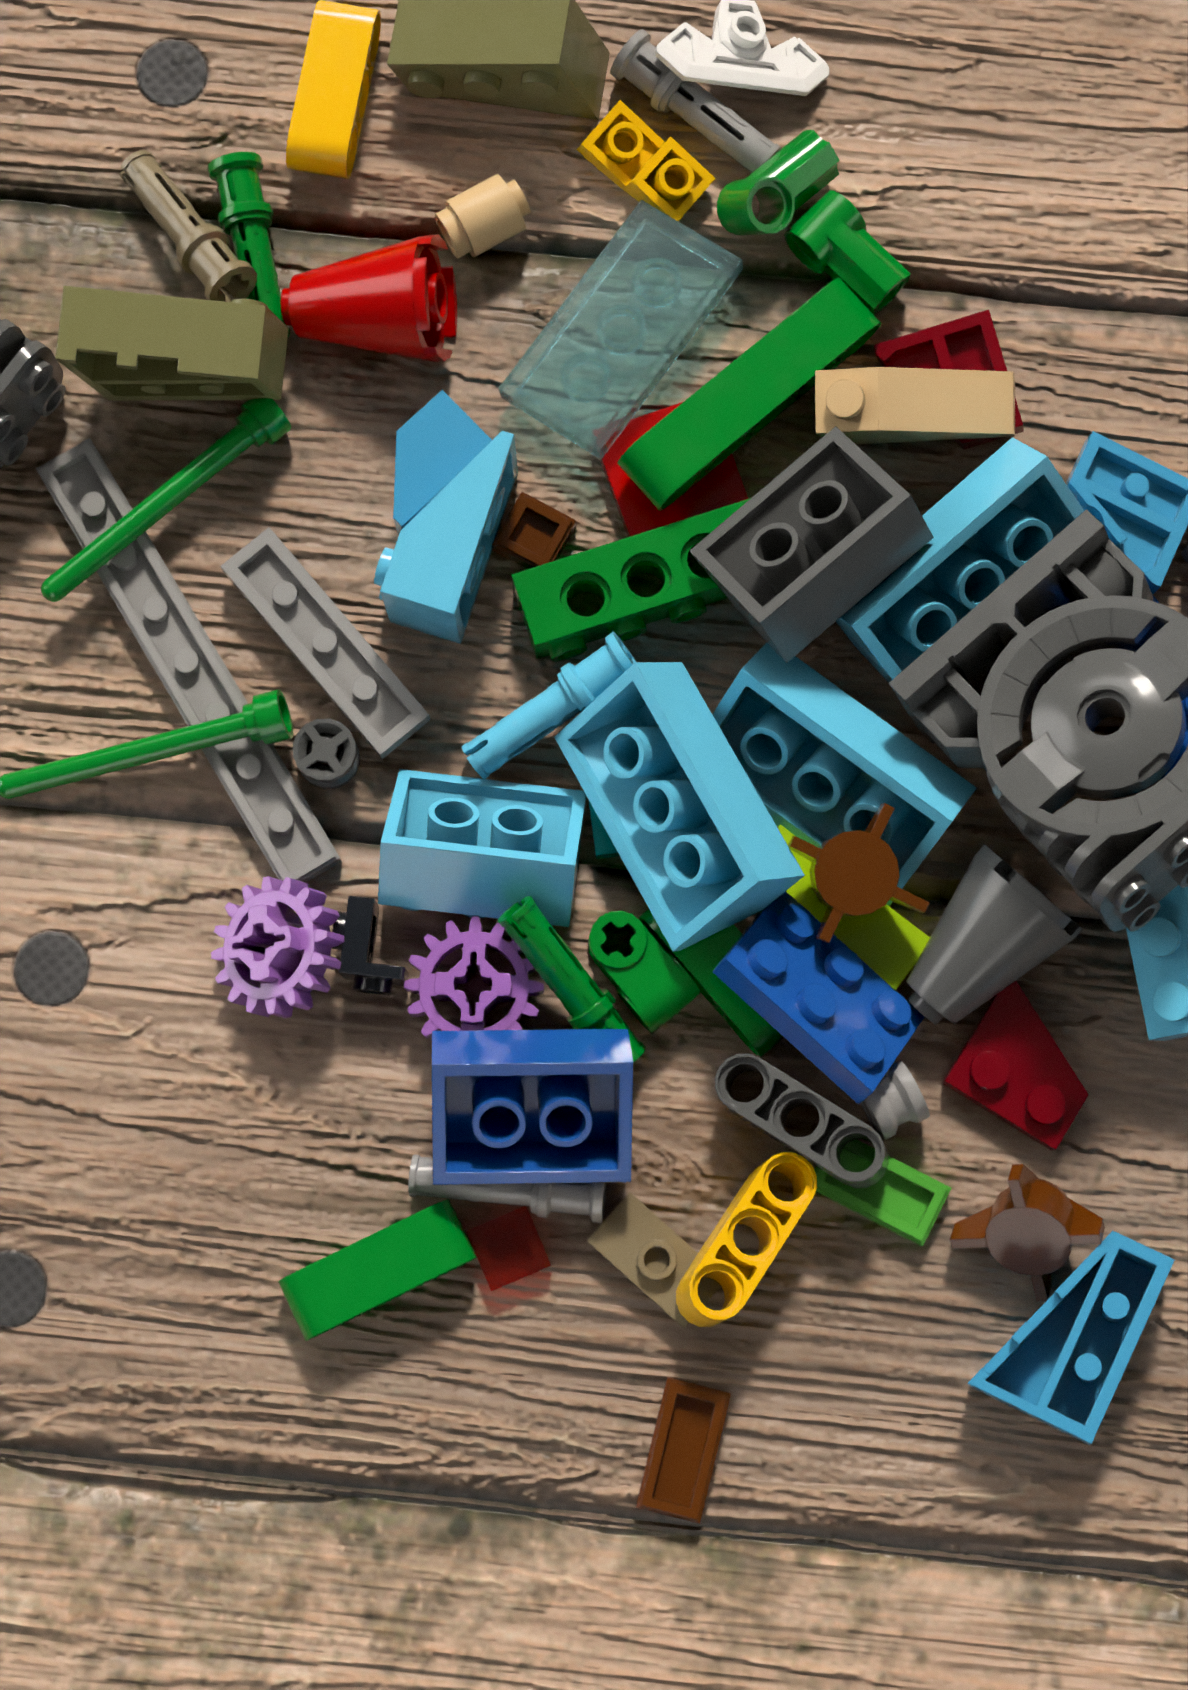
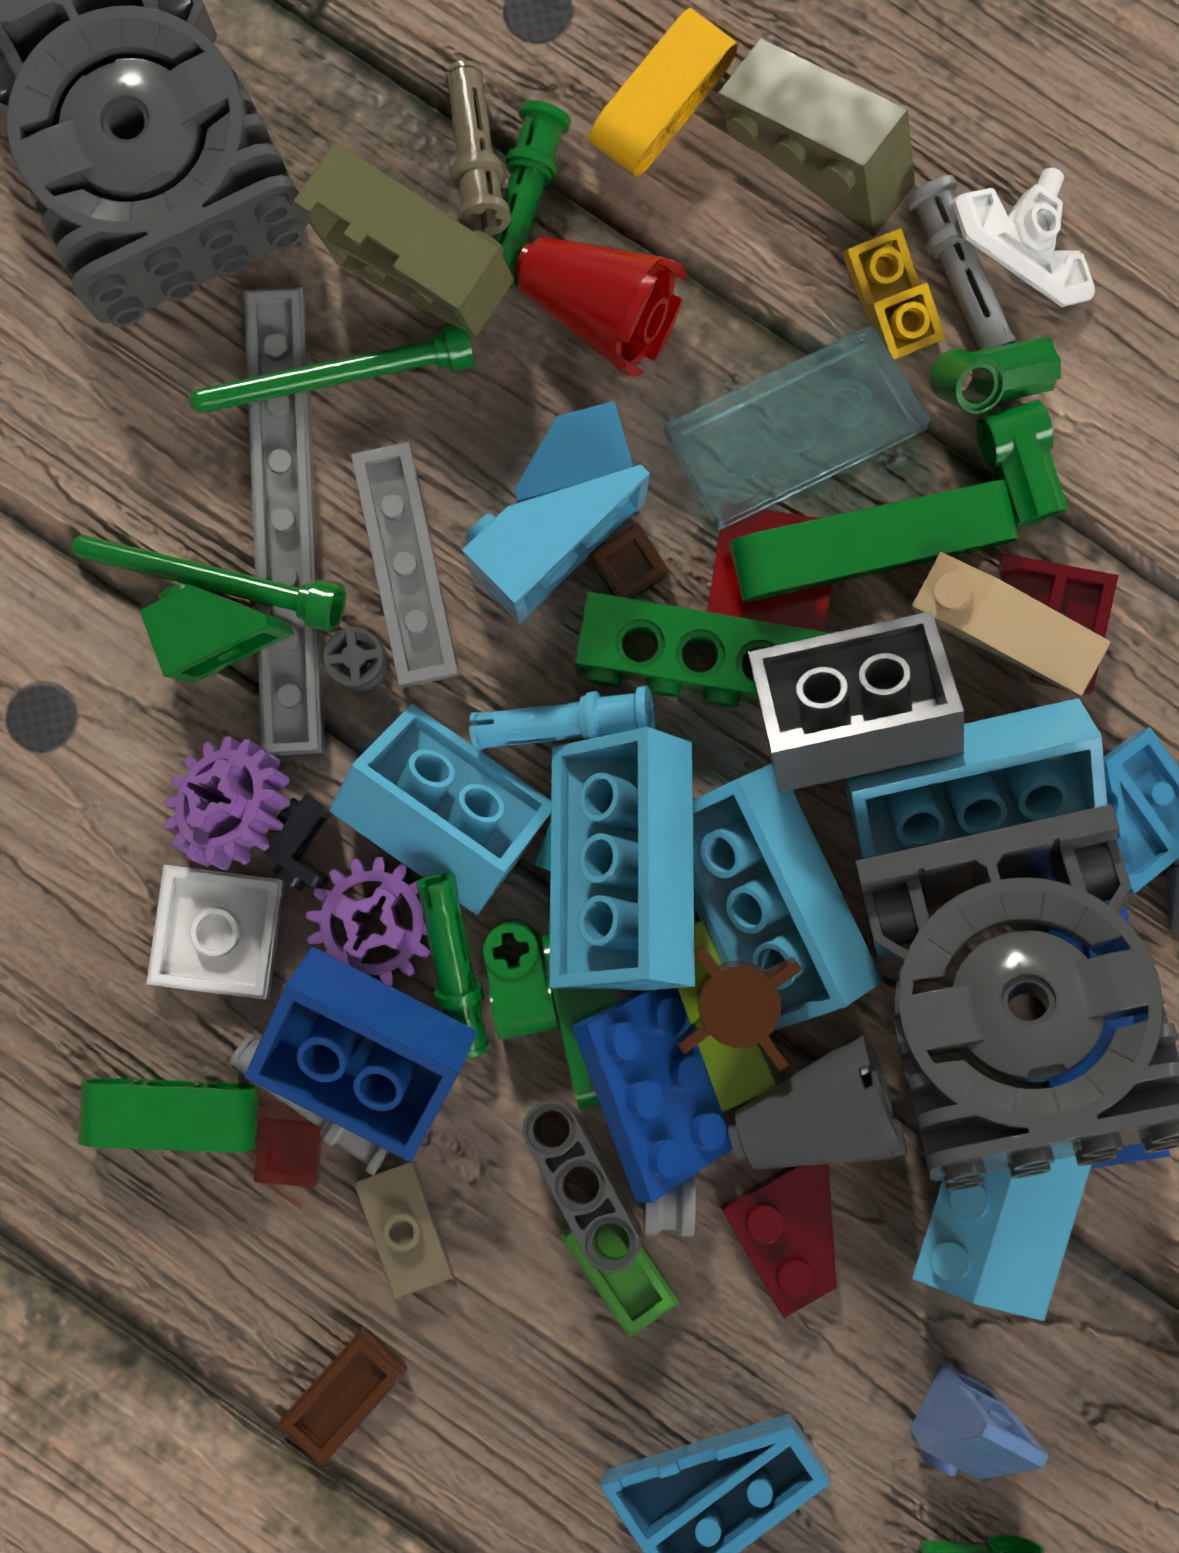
camera: 25 degrees right, 5 degrees up
(174, 797) = (205, 632): none -> green slope
(328, 1078) = (216, 932): none -> white tile
(483, 216) = (731, 269): tan brick -> none
(770, 1220) = (451, 1258): yellow beam -> none
(1030, 1228) = (726, 1378): reddish brown piece -> none

